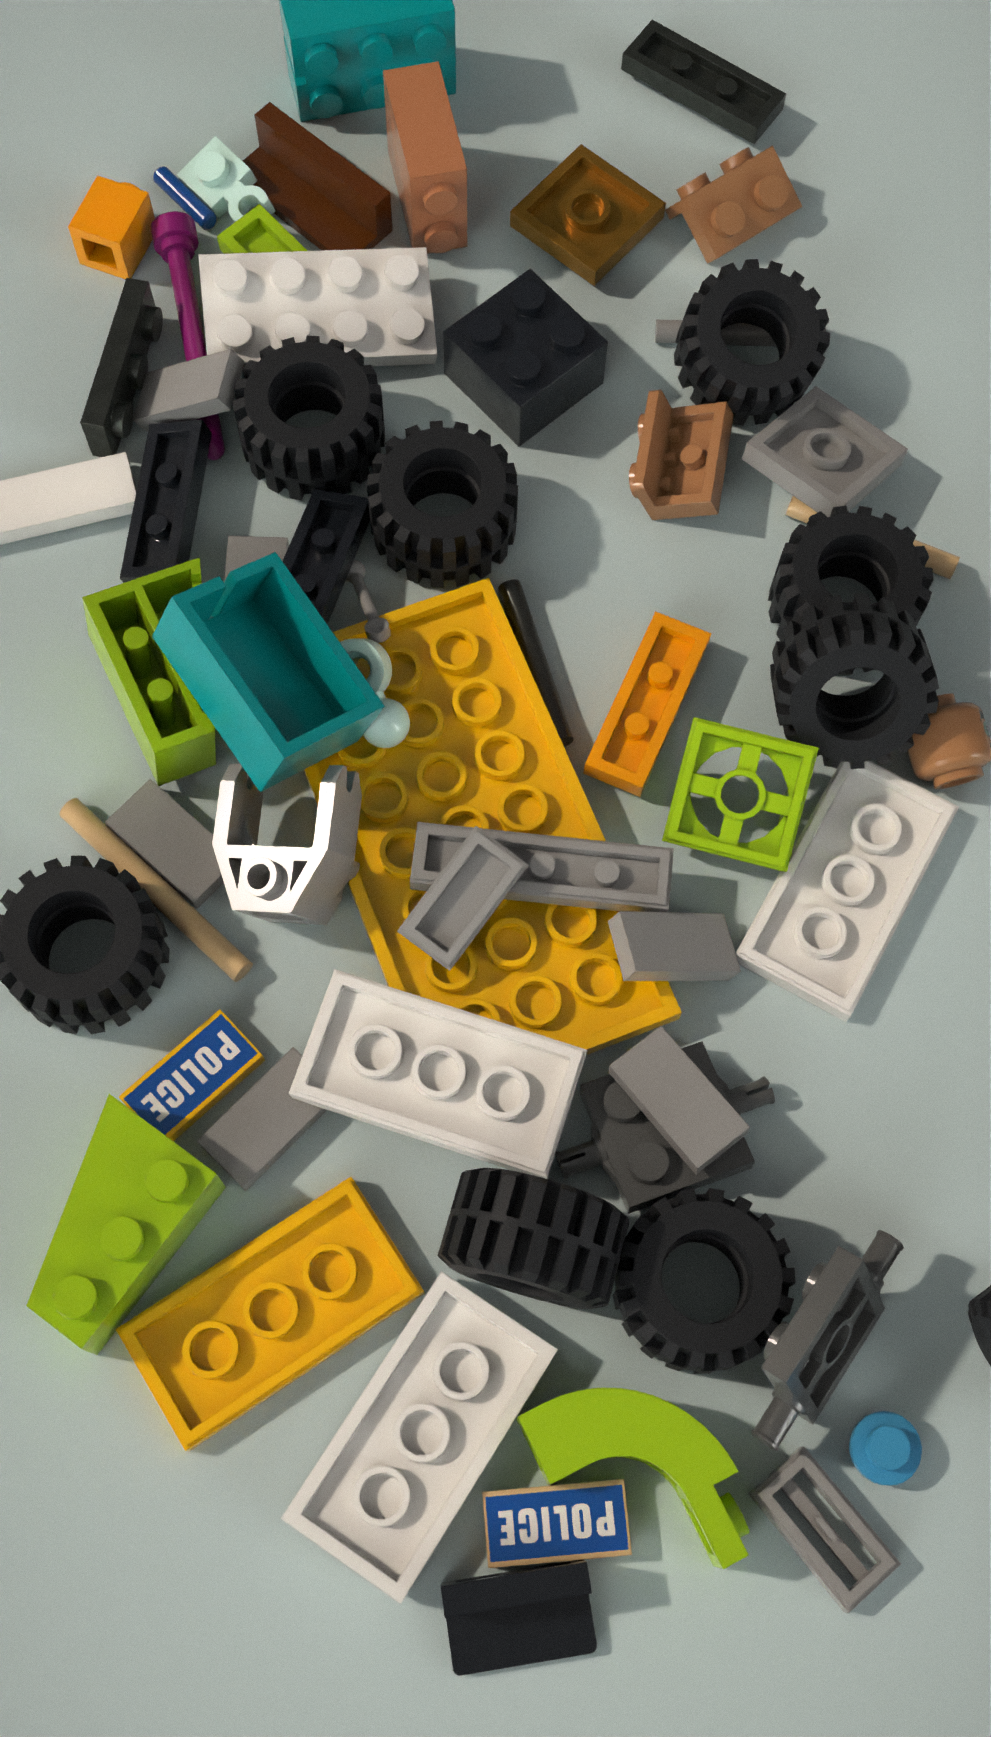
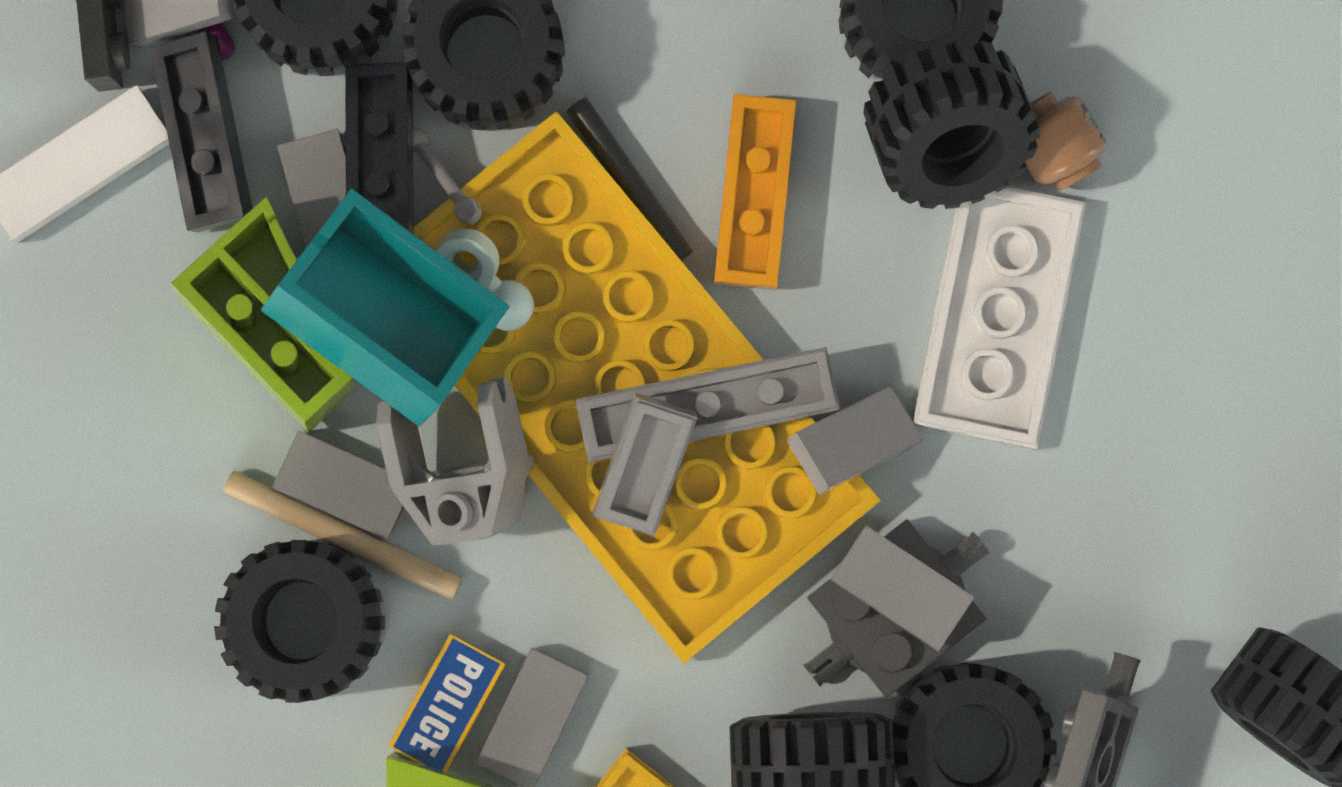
camera: 15 degrees left, 15 degrees up
(439, 1074) = (676, 634): white tile -> none
(792, 758) = (915, 316): lime piece -> none

